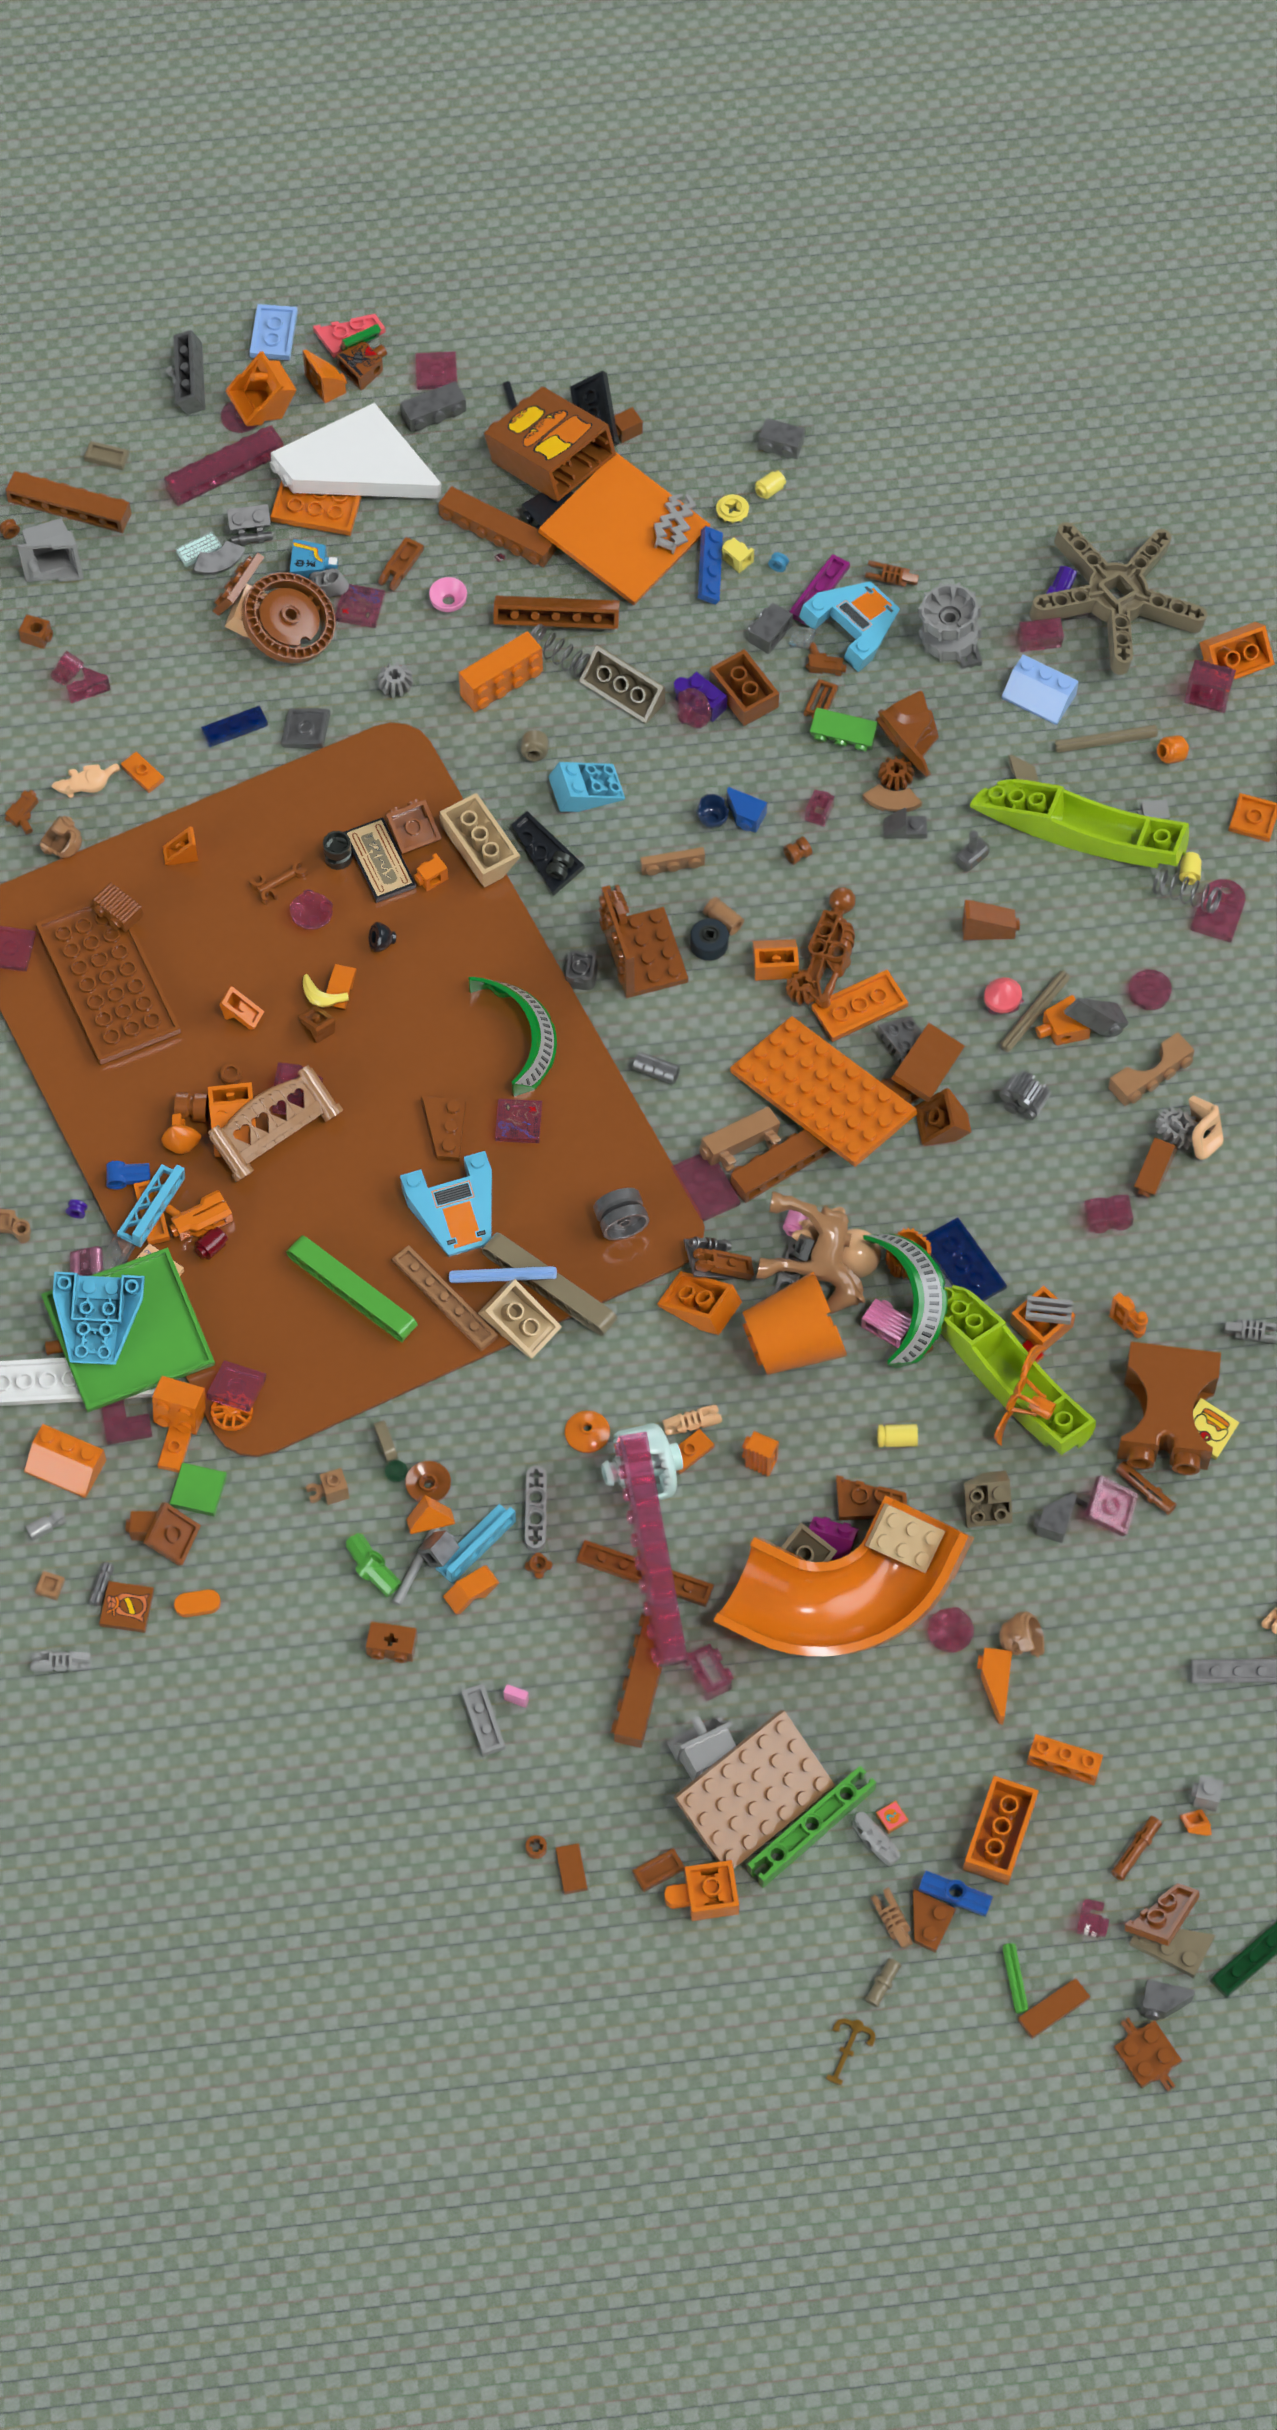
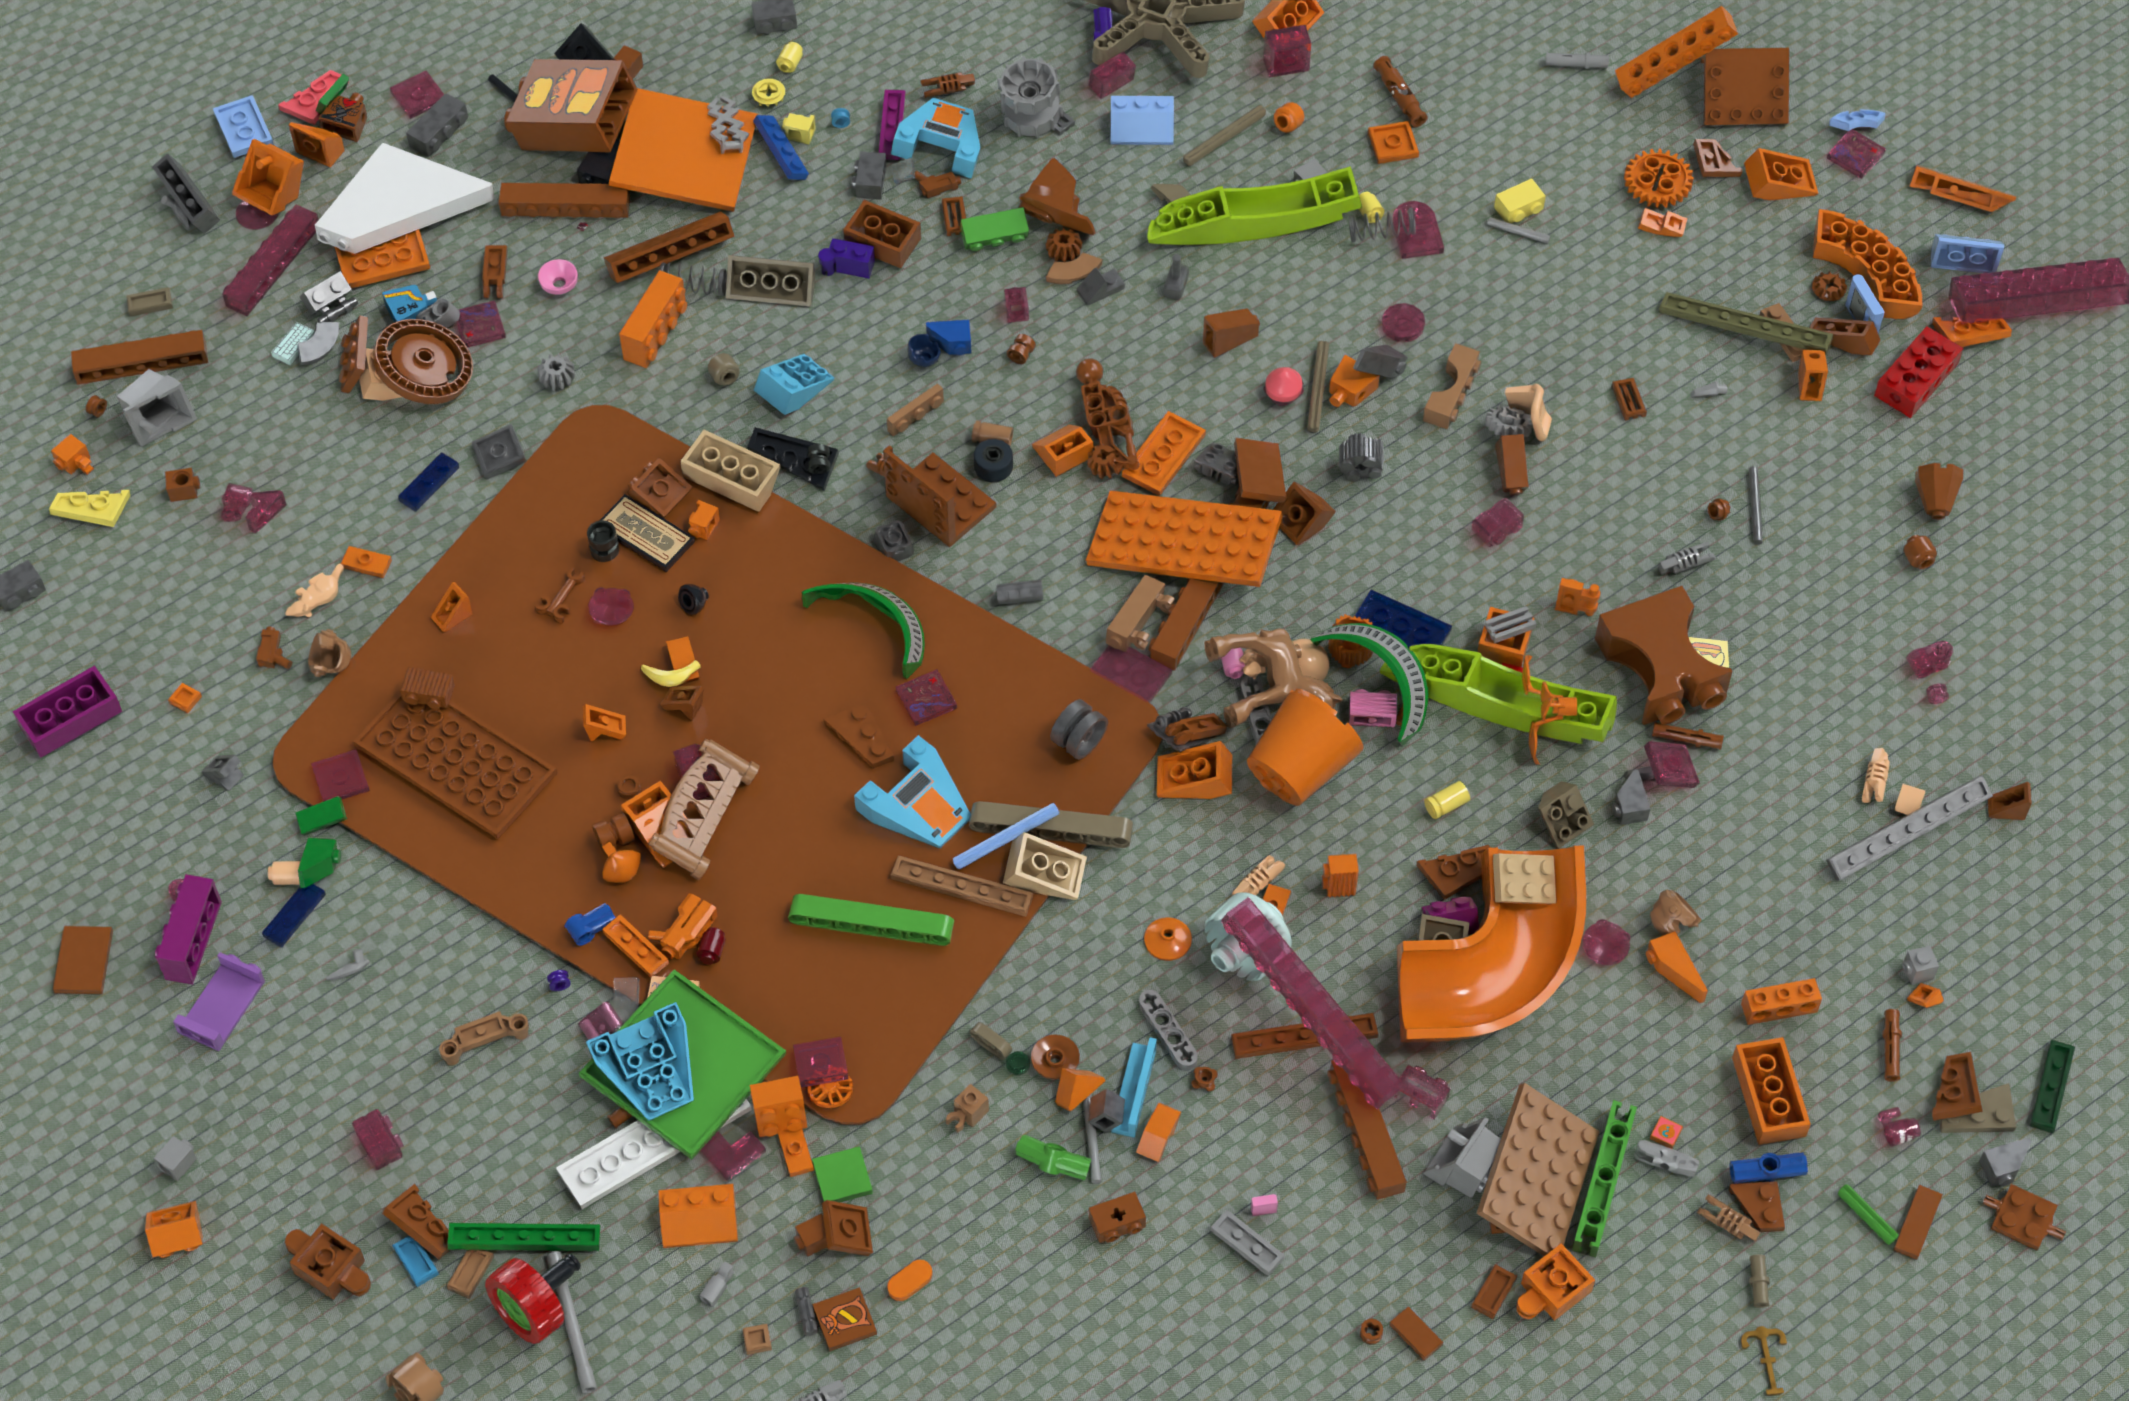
camera: 30 degrees left, 5 degrees down
(155, 1208) = (641, 936): medium azure fence -> none
(693, 708) = (849, 271): clear pink dish -> none
(803, 1247) = (1261, 677): dark grey tile -> none

